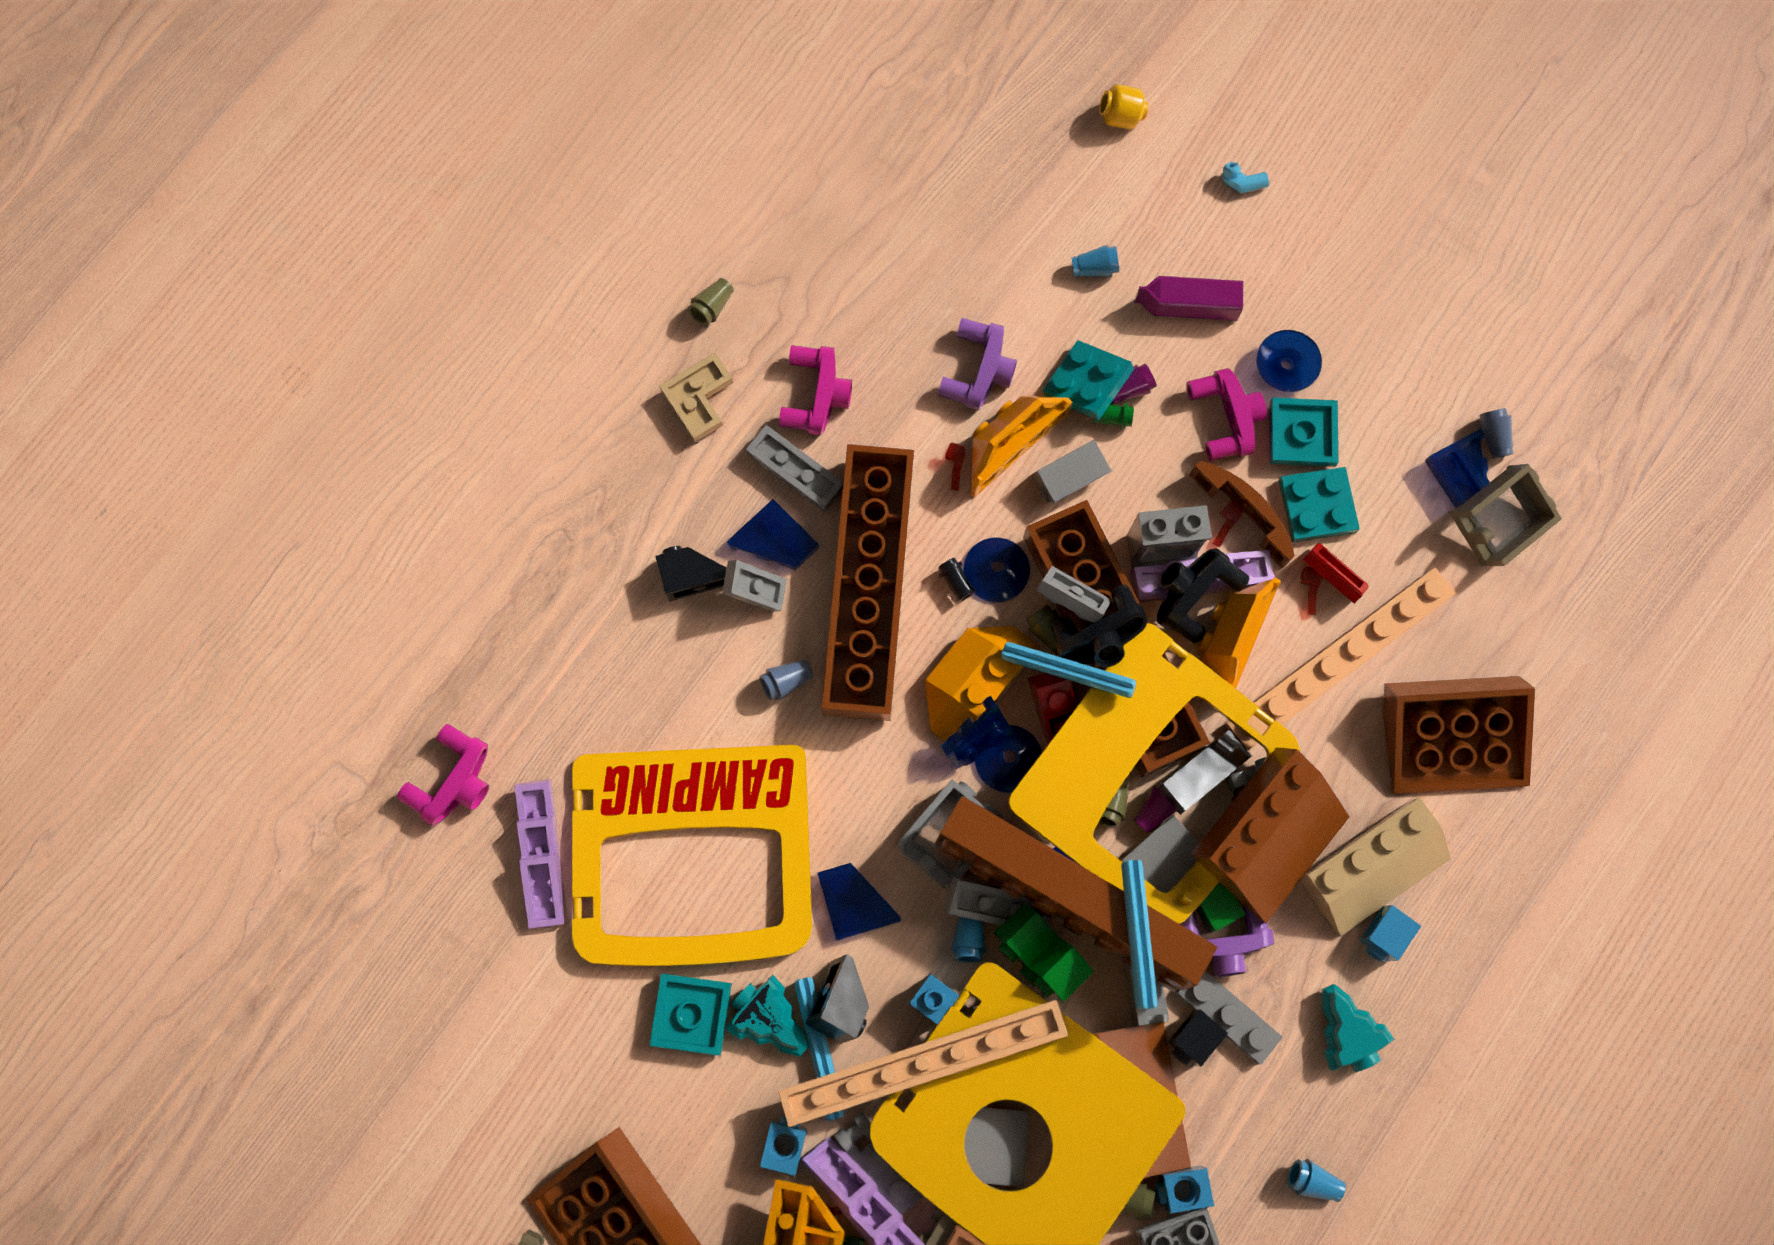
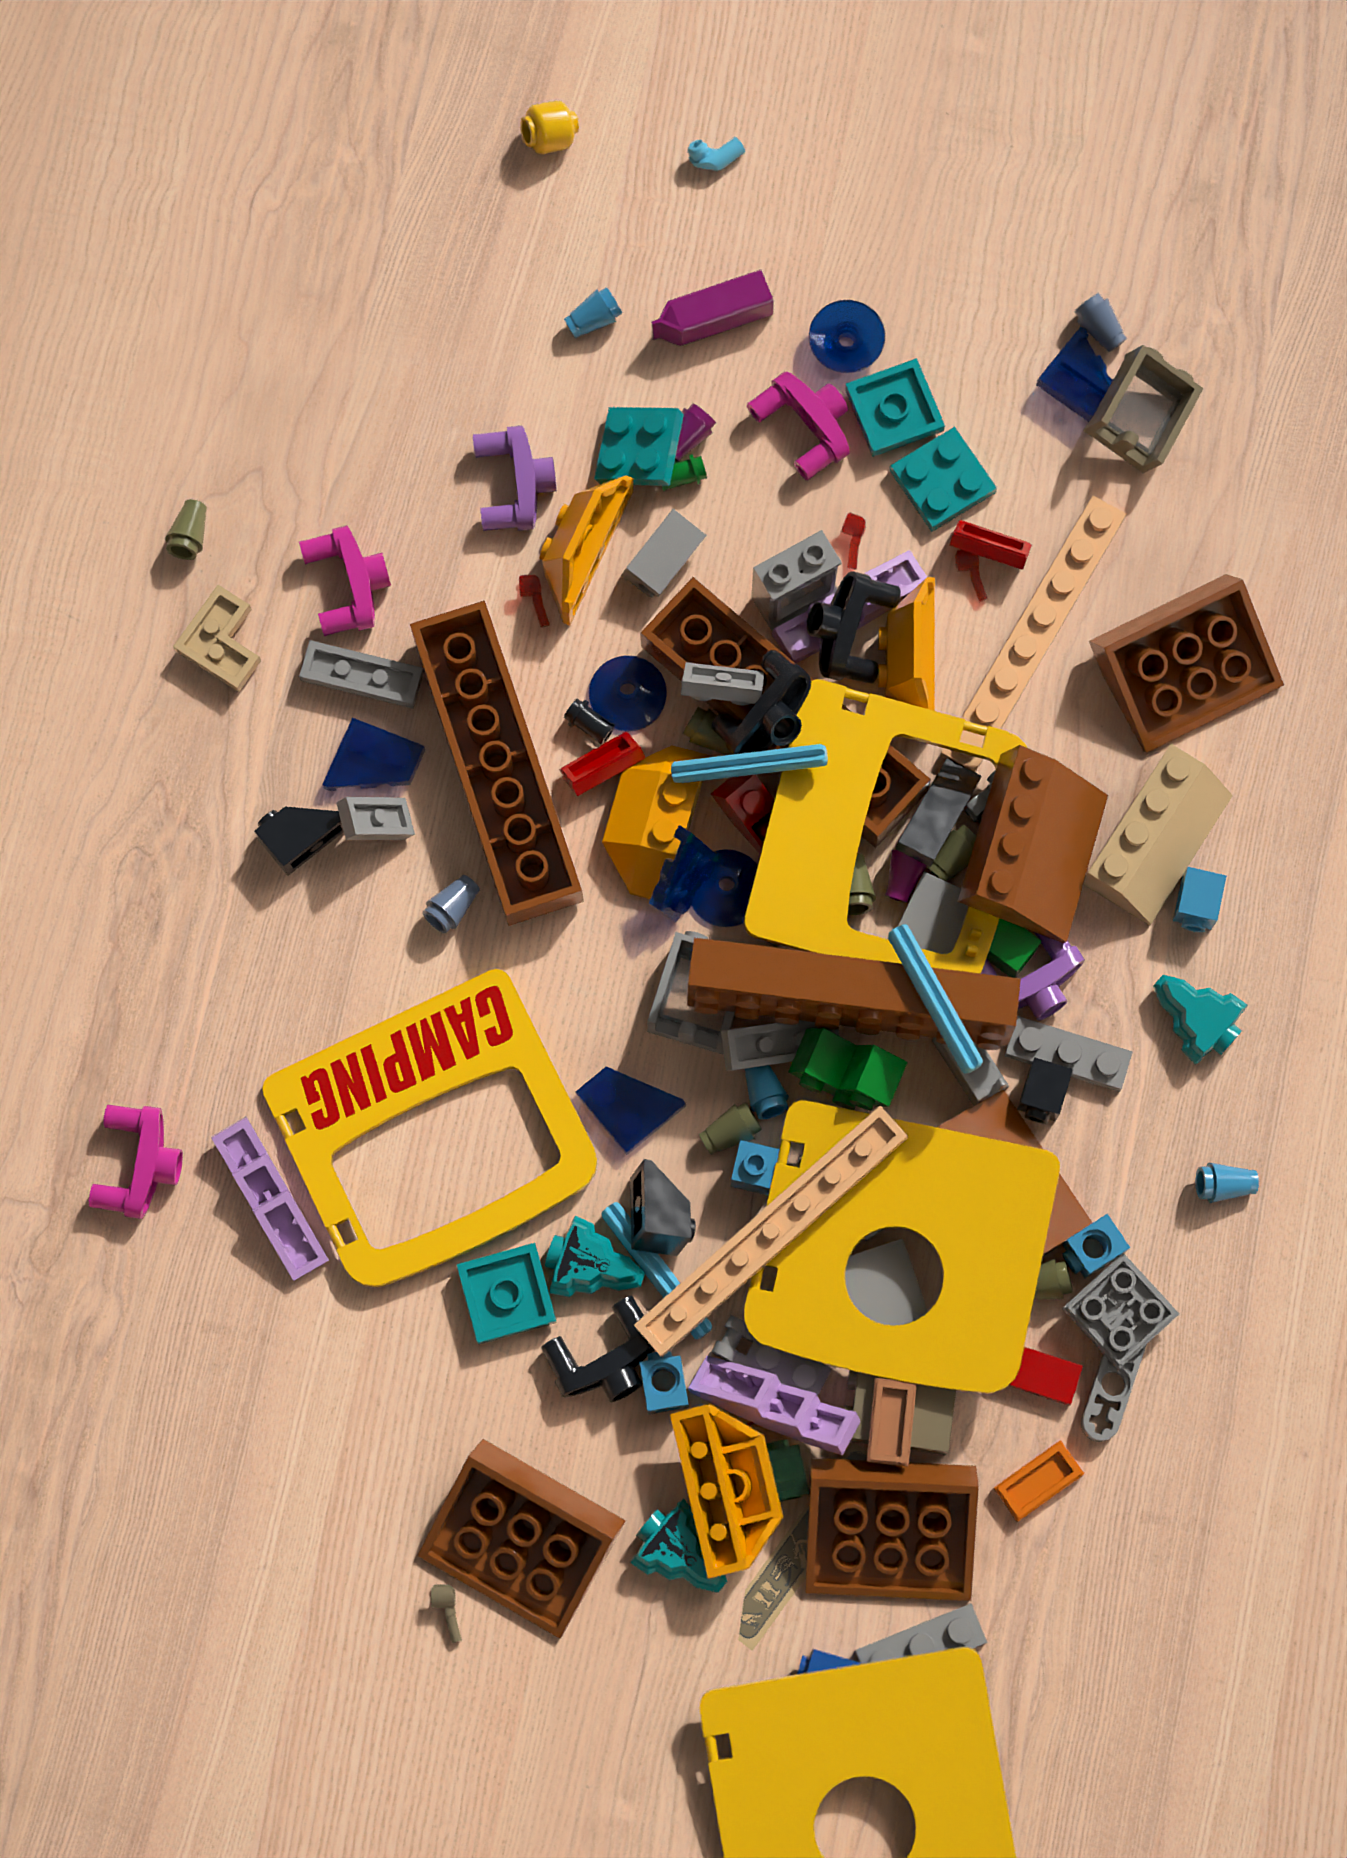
camera: 20 degrees left, 0 degrees up
(747, 1117) = (611, 1371): none -> black connector
(928, 958) = (730, 1128): none -> olive cone
(952, 617) = (602, 763): none -> red tile
(1205, 810) = (954, 854): none -> olive cone
(1214, 479) = (821, 497): dark orange slope -> none

